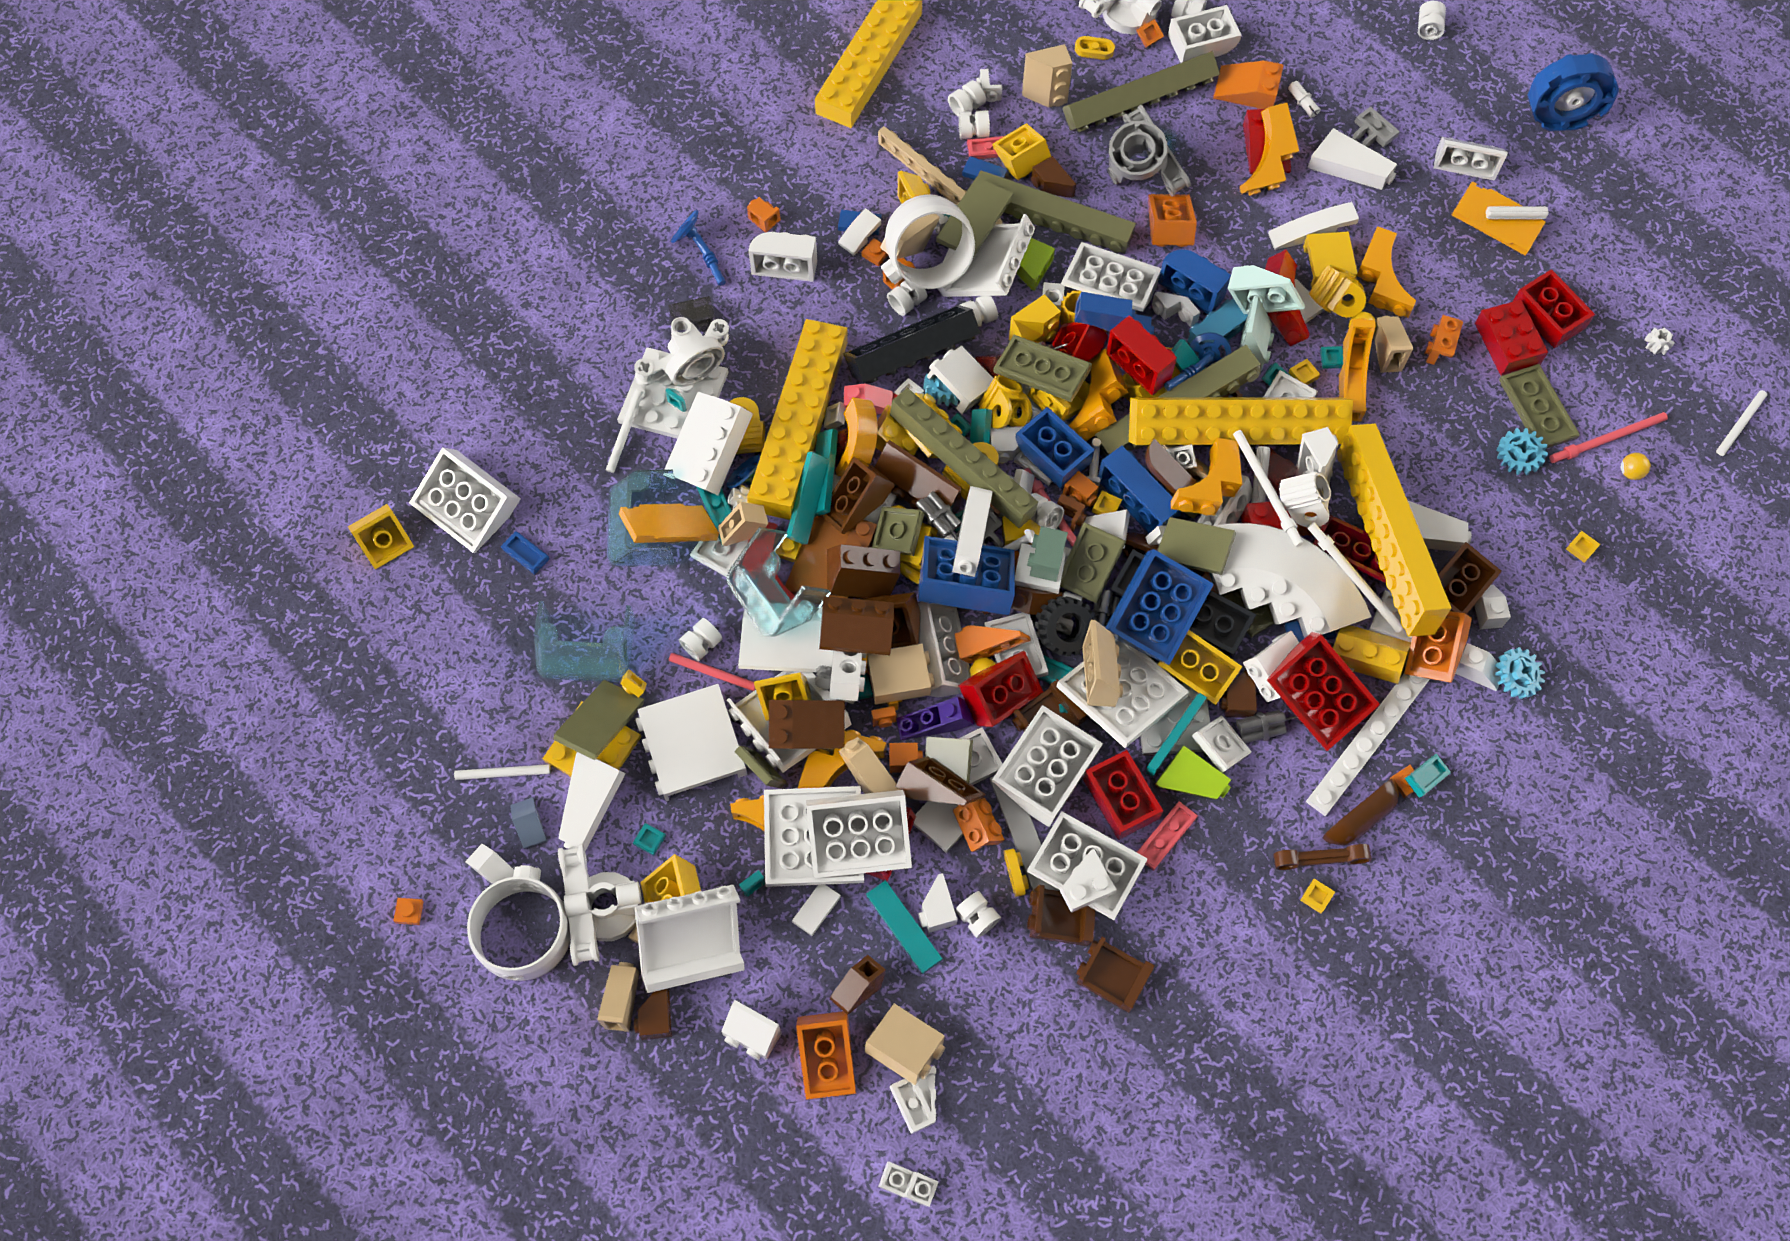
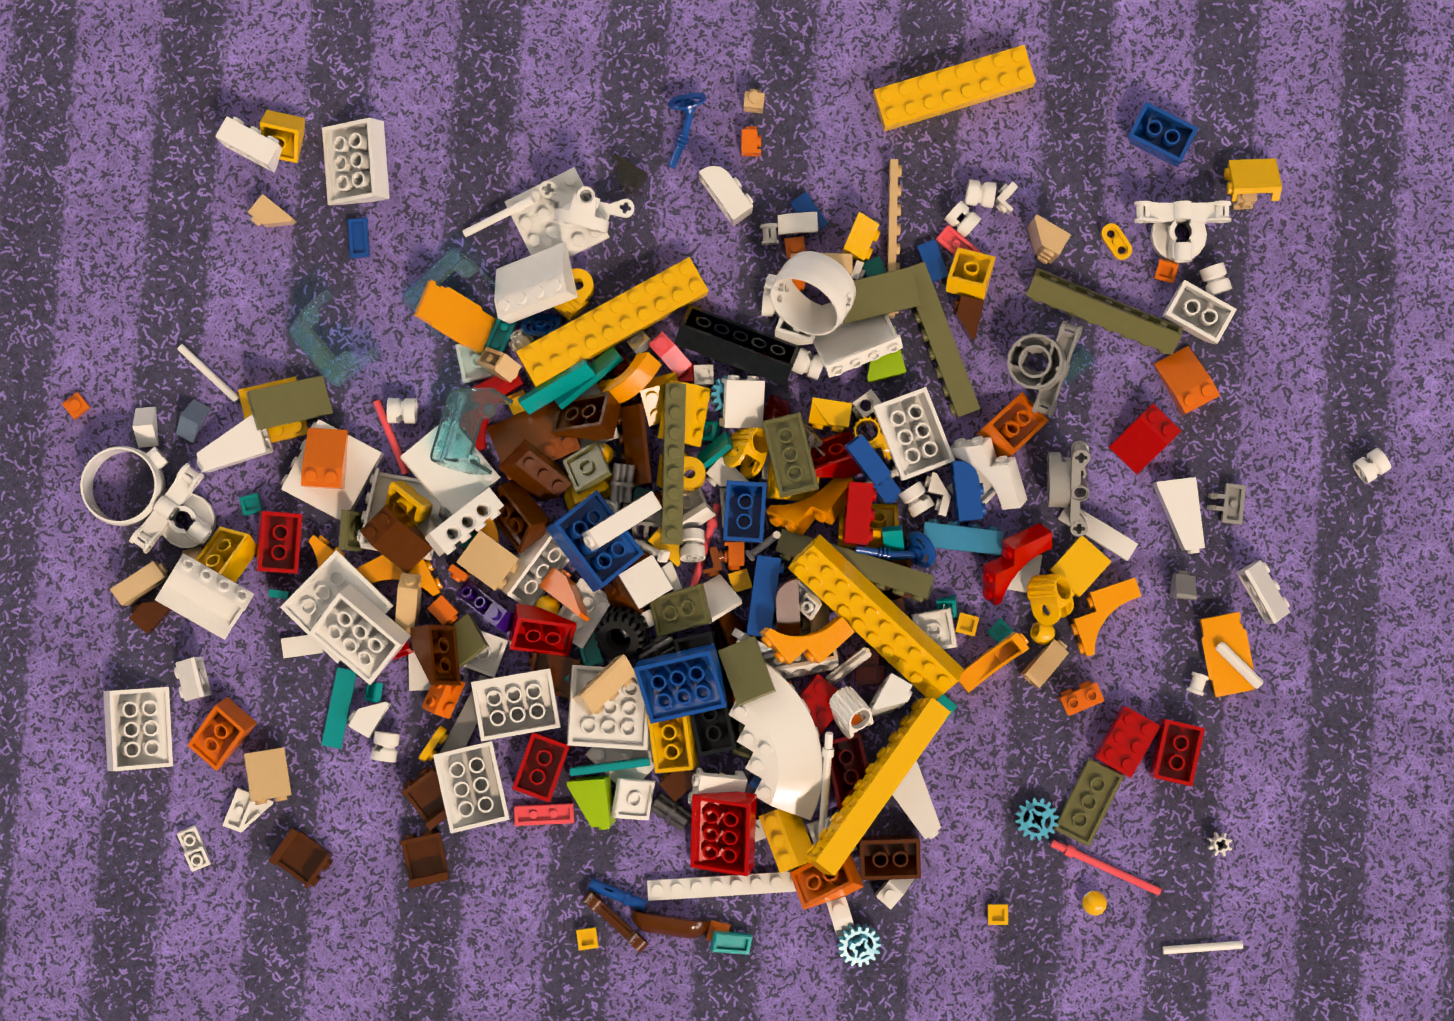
camera: 40 degrees right, 20 degrees up
(359, 560) = (250, 143): none -> white slope
(430, 599) = (269, 214): none -> tan slope
(633, 684) = (334, 398): yellow plate -> none
(676, 399) = (551, 229): teal slope -> none
(678, 731) = (325, 459): none -> orange slope
(706, 839) = (278, 542): none -> red brick
(733, 180) = (754, 101): none -> tan brick
(745, 1130) = (138, 729): none -> white slope
(847, 258) = (773, 237): none -> white bush
(856, 625) = (485, 510): reddish brown slope -> none
(858, 984) = (275, 716): reddish brown slope -> none
(918, 880) = (374, 692): none -> teal tile
(942, 298) = (792, 335): none -> white slope
(1012, 1087) = (302, 857): none -> reddish brown panel
(1048, 553) = (656, 580): sand green brick -> none
(1087, 883) = (456, 798): white wing -> none
(1166, 325) = (916, 499): none -> white wheel
(1201, 243) = (1000, 471): none -> white arch
(1251, 208) = (1064, 481): none -> light grey piece
(1257, 332) = (959, 571): light aqua slope -> none
(1274, 291) = (986, 544): light aqua slope -> none
(1279, 147) = (1140, 452): light orange arch -> none
(1288, 524) = (817, 718): white bar -> none
(1303, 98) = (1210, 431): white axle -> none
(1306, 830) = (617, 894): none -> blue pin
(1415, 203) = (1183, 586): none -> light grey slope
(1505, 256) = (1197, 683): none -> white bush
(1572, 92) = (1381, 625): blue piece -> none

